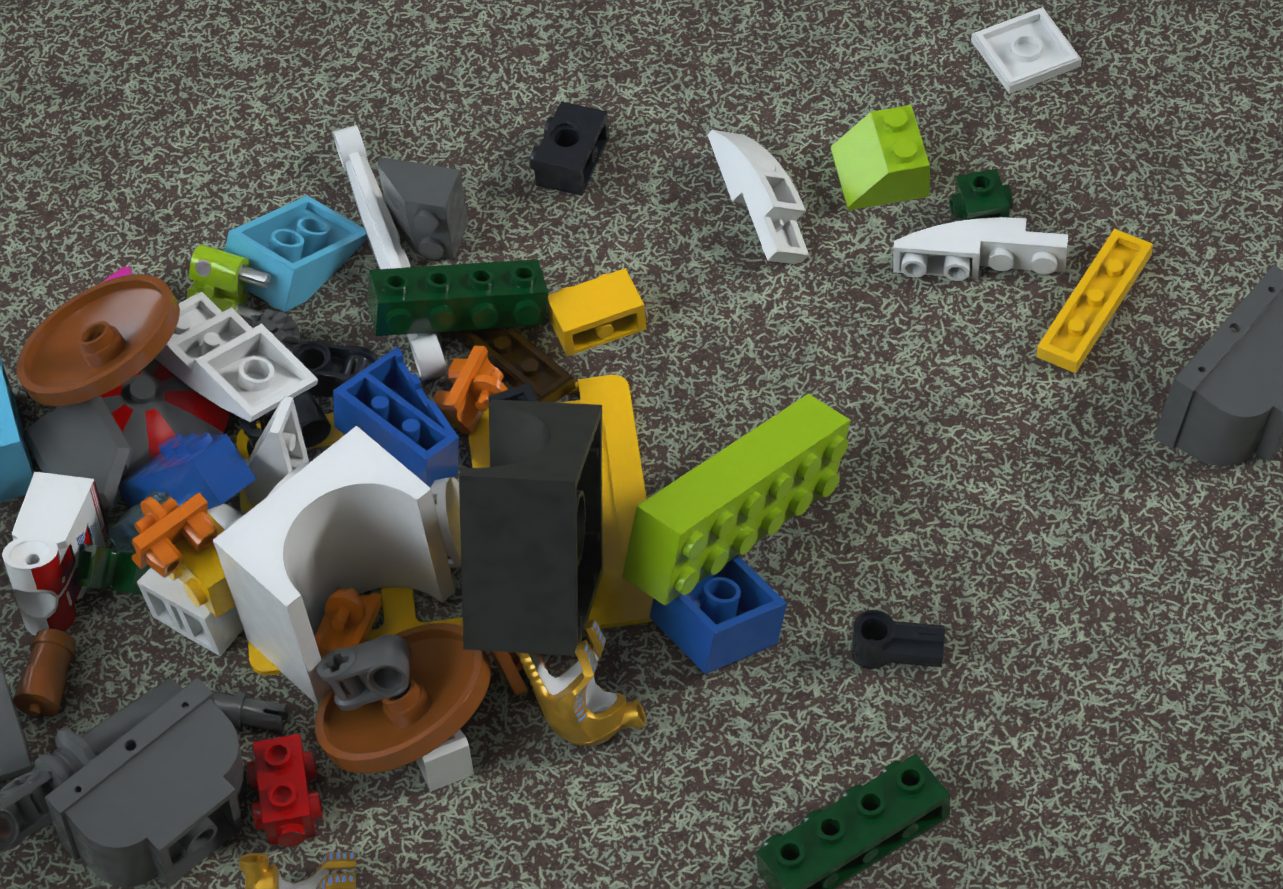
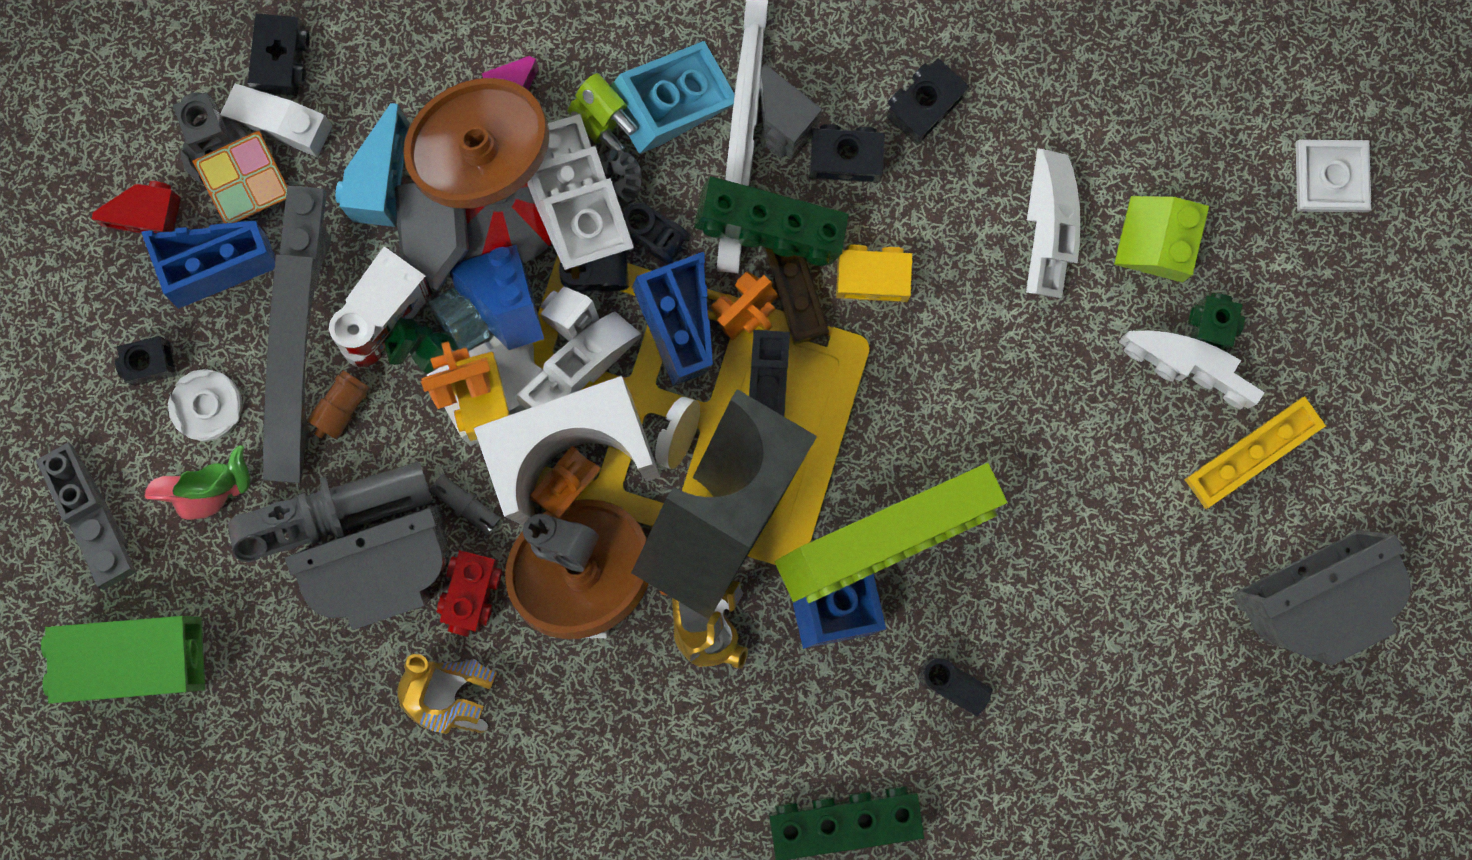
camera: 15 degrees right, 30 degrees up
(510, 224) = (828, 165): none -> black brick

